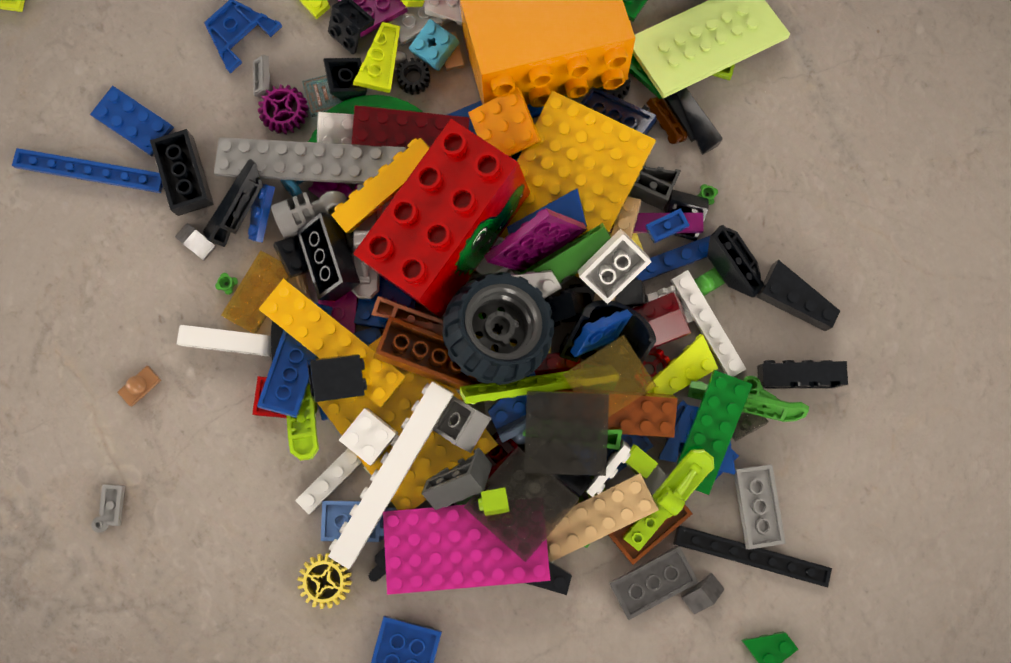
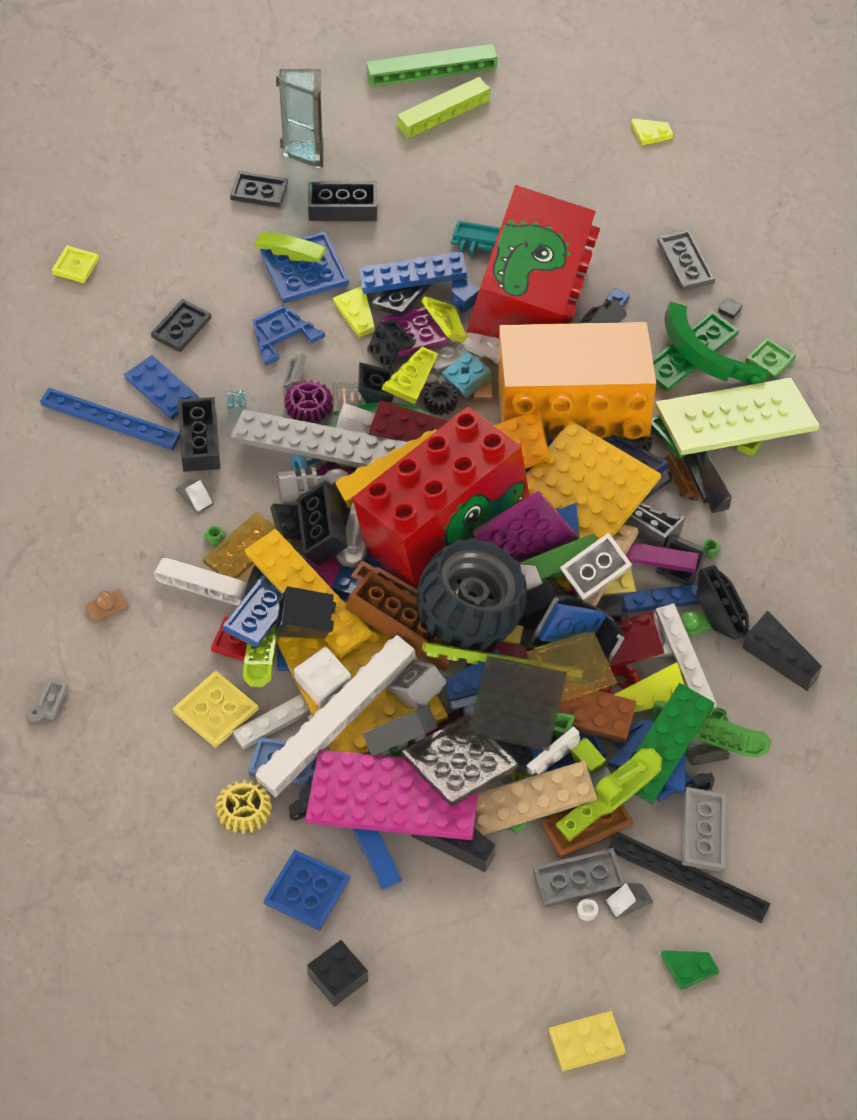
camera: 15 degrees right, 25 degrees down
(133, 43) = (181, 325): none -> black plate
(209, 120) = (240, 398): none -> clear light blue wheel
(234, 205) = (242, 468): black wedge -> none
(260, 212) = (266, 474): blue wing -> none
(273, 480) = (215, 709): none -> light yellow plate
(466, 609) = (377, 857): none -> blue slope
(494, 501) = (432, 746): lime brick -> none
(667, 225) = (659, 555): blue plate -> none
(667, 611) = (587, 909): none -> white tile
(748, 456) = (703, 781): none -> black plate
(803, 375) = (775, 718): black wedge -> none

